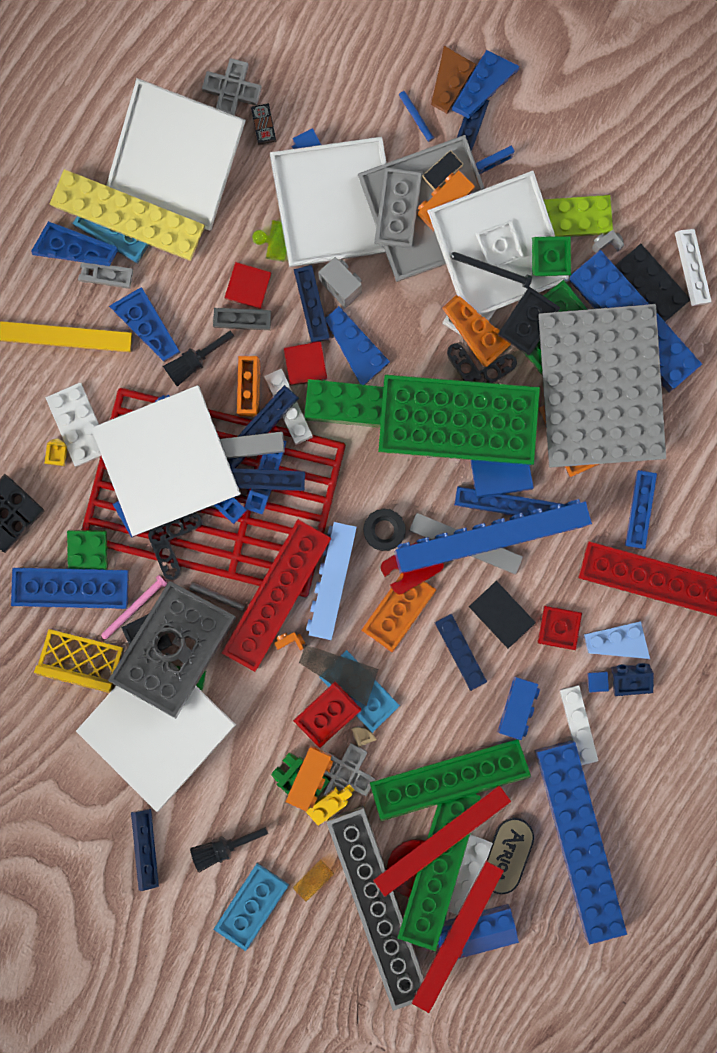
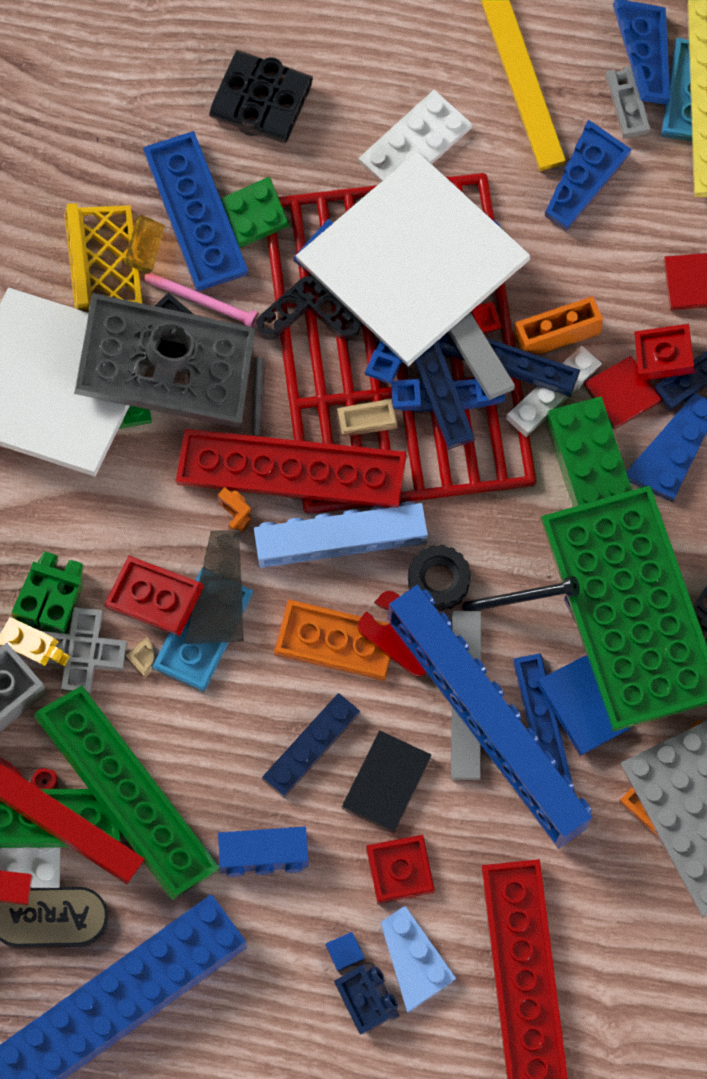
camera: 65 degrees right, 15 degrees down
(55, 452) = (366, 128): yellow plate -> none
(81, 630) = (144, 244): none -> clear yellow plate
(192, 360) = (561, 246): black piece -> none
(224, 429) = (486, 317): none -> red plate
(242, 319) = (646, 289): dark grey plate -> none
(260, 533) = (367, 418): none -> tan tile
(291, 326) = (664, 352): none -> red plate
(309, 779) = (57, 596): orange brick -> none
(420, 822) = (45, 774): none -> red plate
(433, 453) = (569, 586): none -> black bar
(579, 724) = (272, 948): white plate -> none
(640, 509) = (616, 918): blue plate -> none

